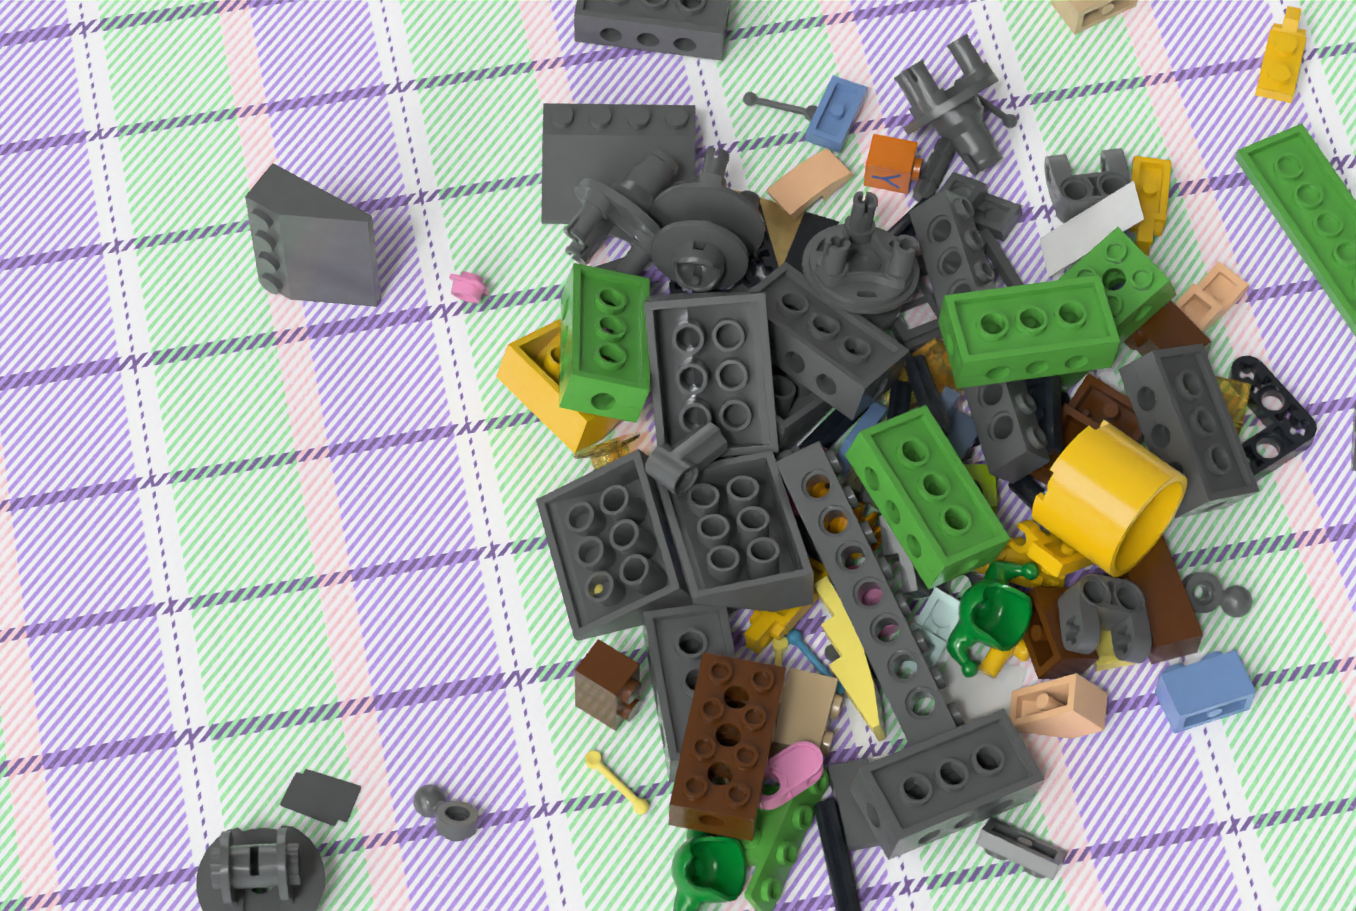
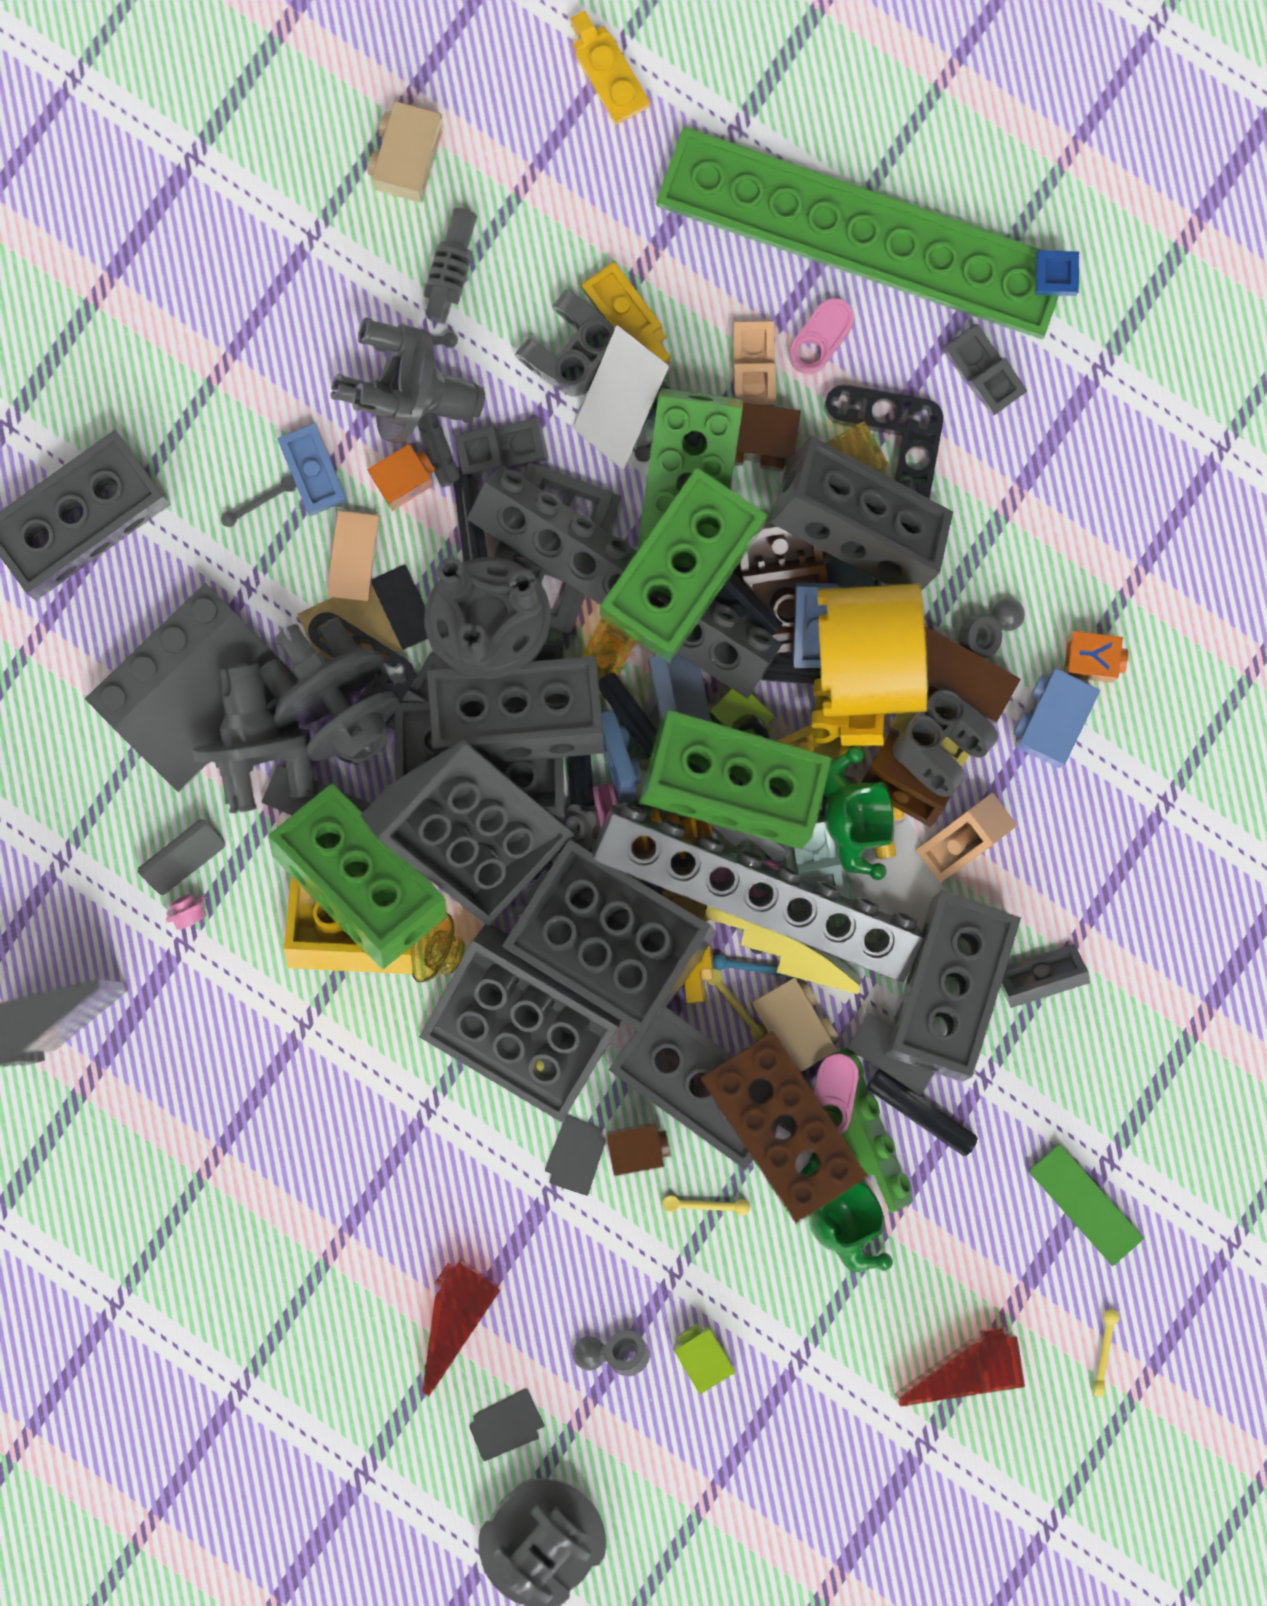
camera: 45 degrees left, 25 degrees up
(367, 686) = (457, 1310): none -> clear red slope
(501, 254) = (181, 857): none -> dark grey slope
(506, 873) = (702, 1357): none -> lime brick
(554, 671) = (575, 1156): none -> dark grey sticker
(680, 465) = (519, 930): dark grey piece -> none
(926, 389) = (644, 682): black axle -> none
(1054, 78) = (450, 266): none -> dark grey hinge
(1275, 676) = (1095, 656): none -> orange brick
(1282, 322) = (825, 329): none -> bright pink piece

